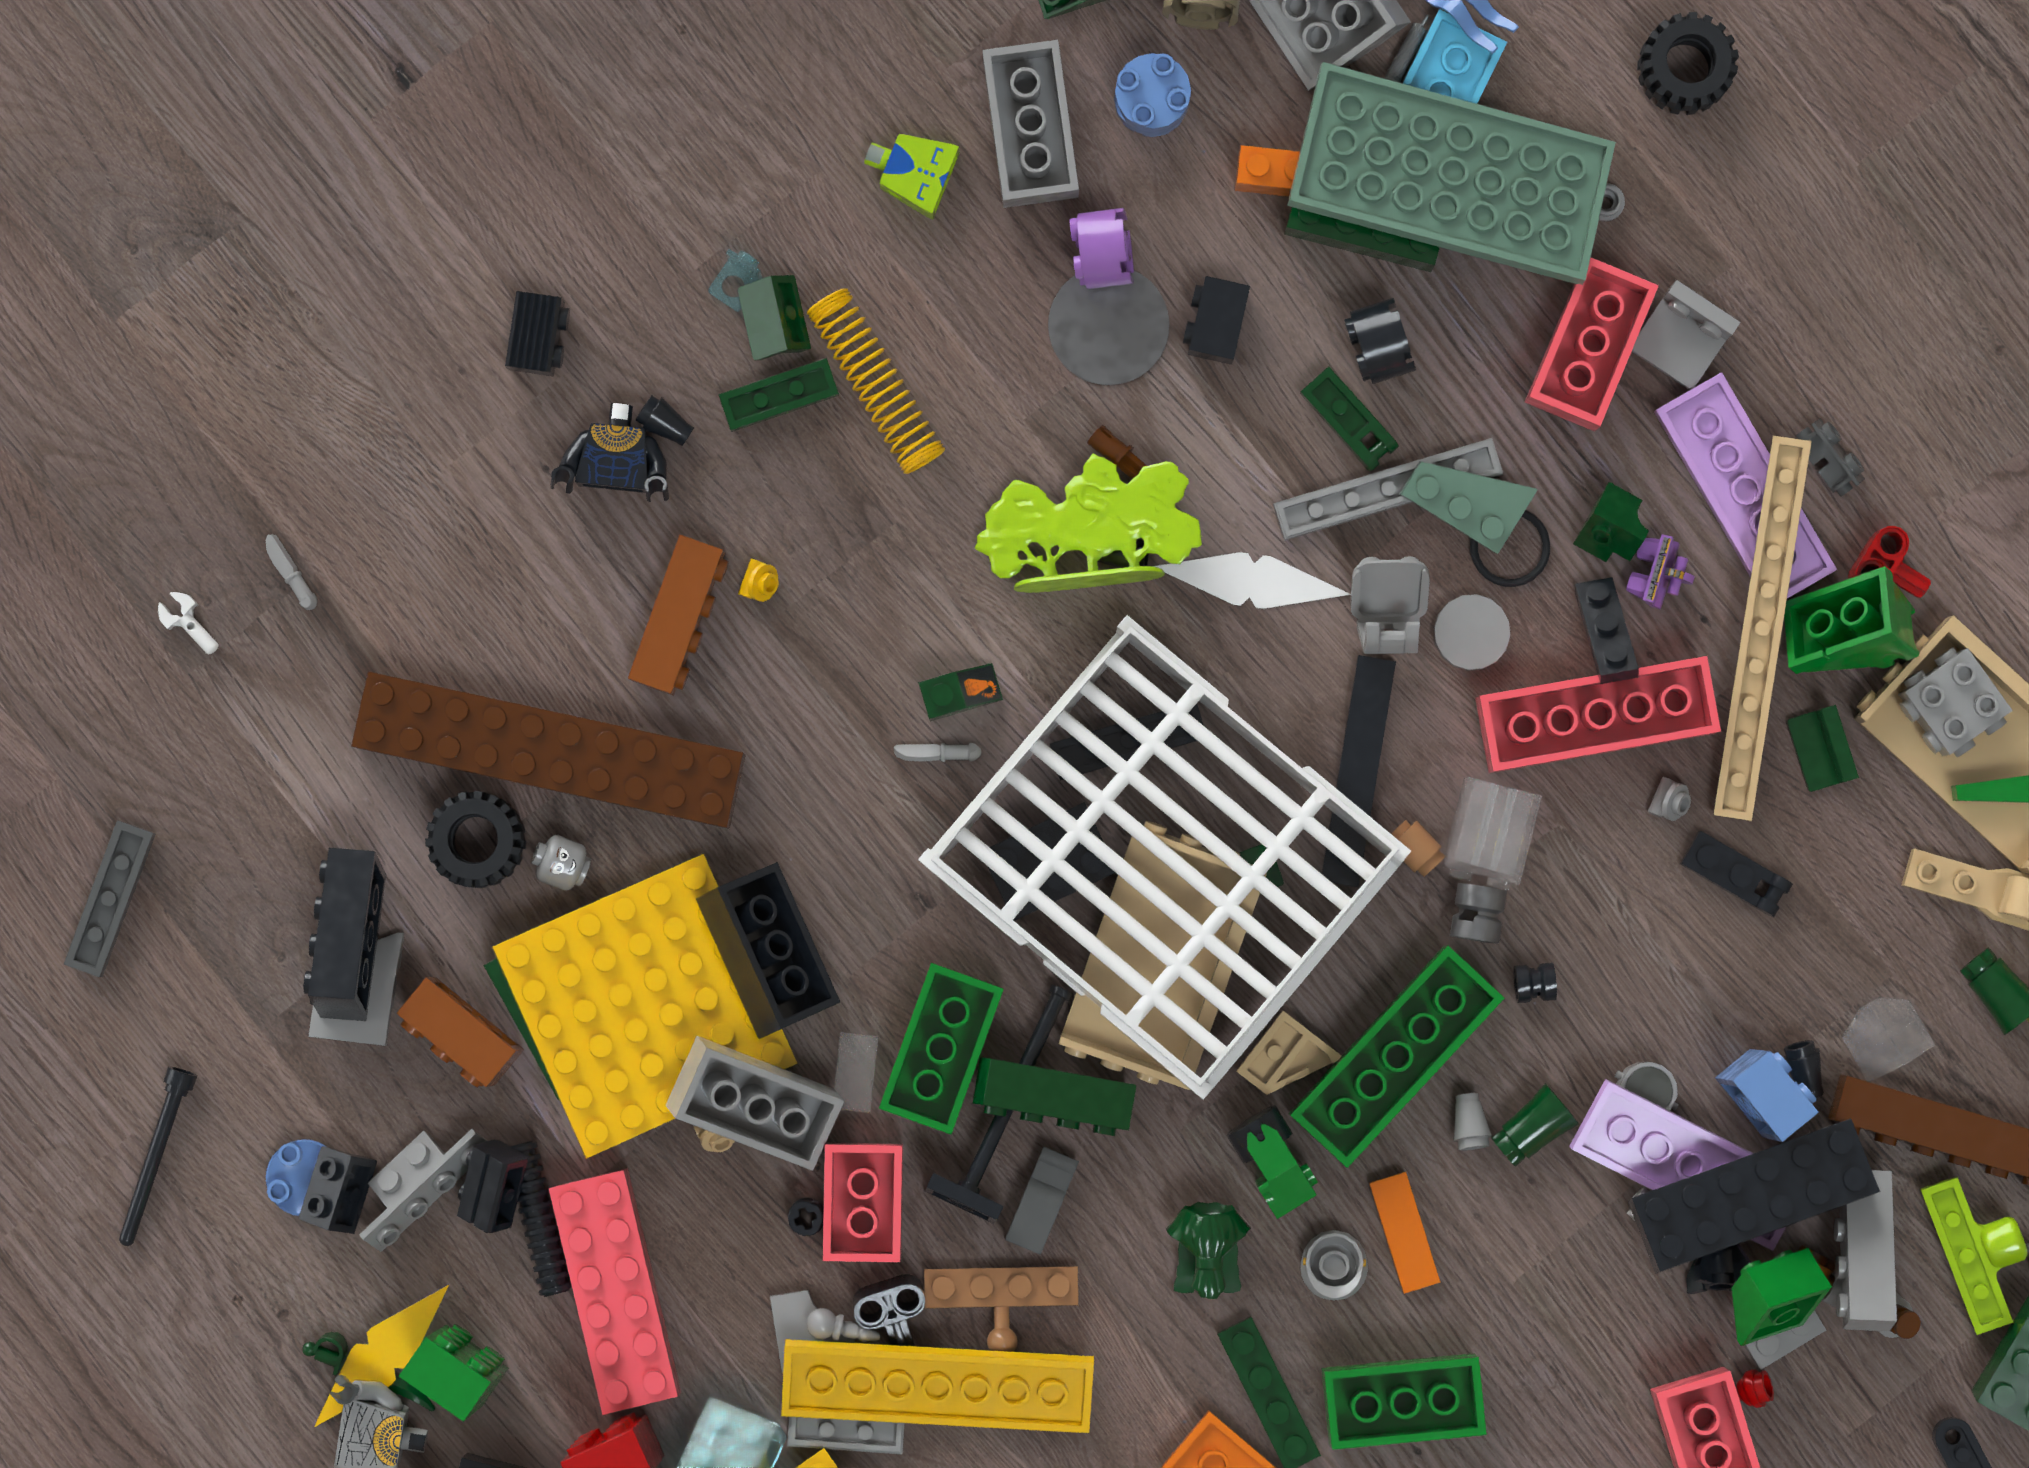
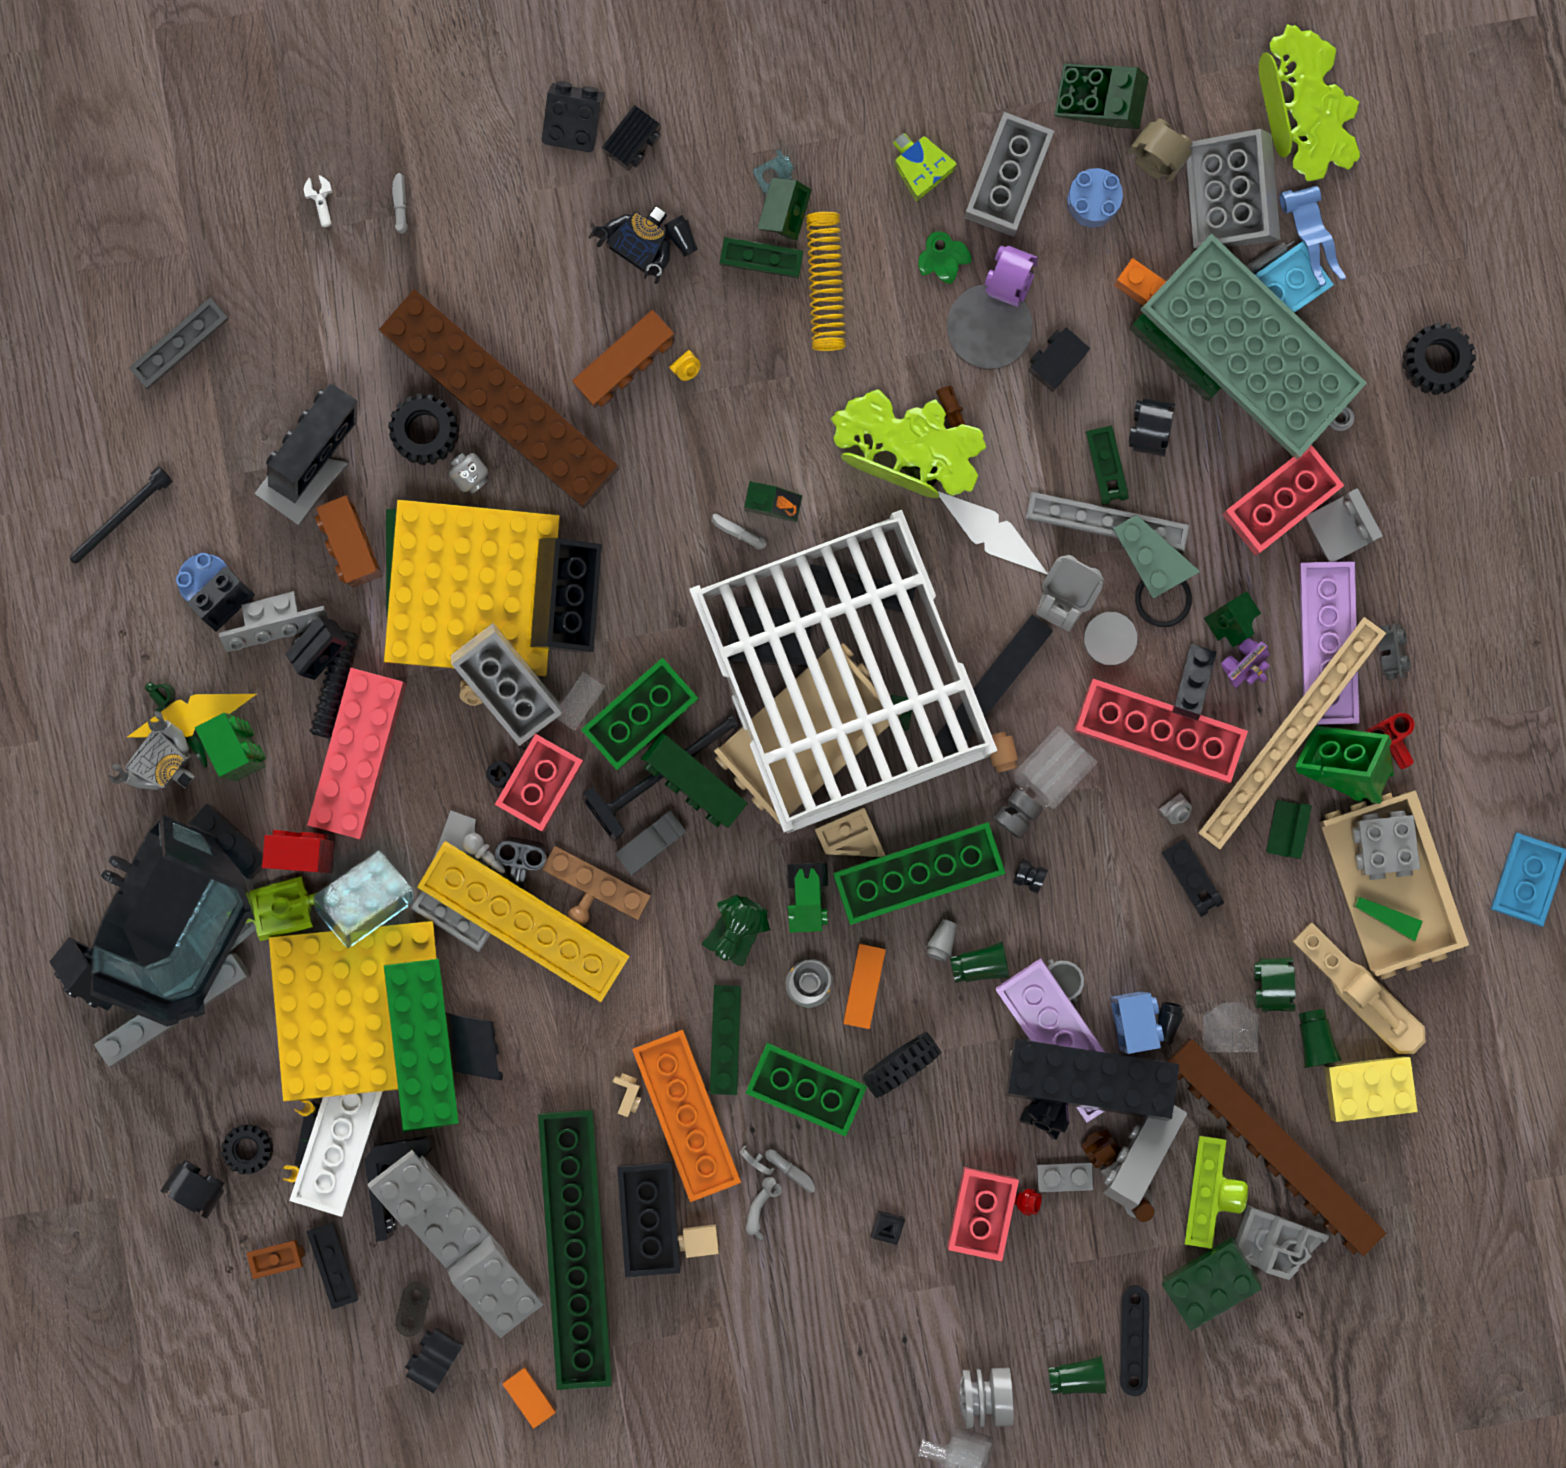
camera: 25 degrees right, 0 degrees up
(446, 347) = (572, 116): none -> black bracket
(1008, 275) = (943, 261): none -> green plate
(1506, 1307) = (901, 1064): none -> black tyre
(1777, 1295) = (1073, 1149): green slope -> none
(1913, 951) = (1276, 984): none -> dark green brick

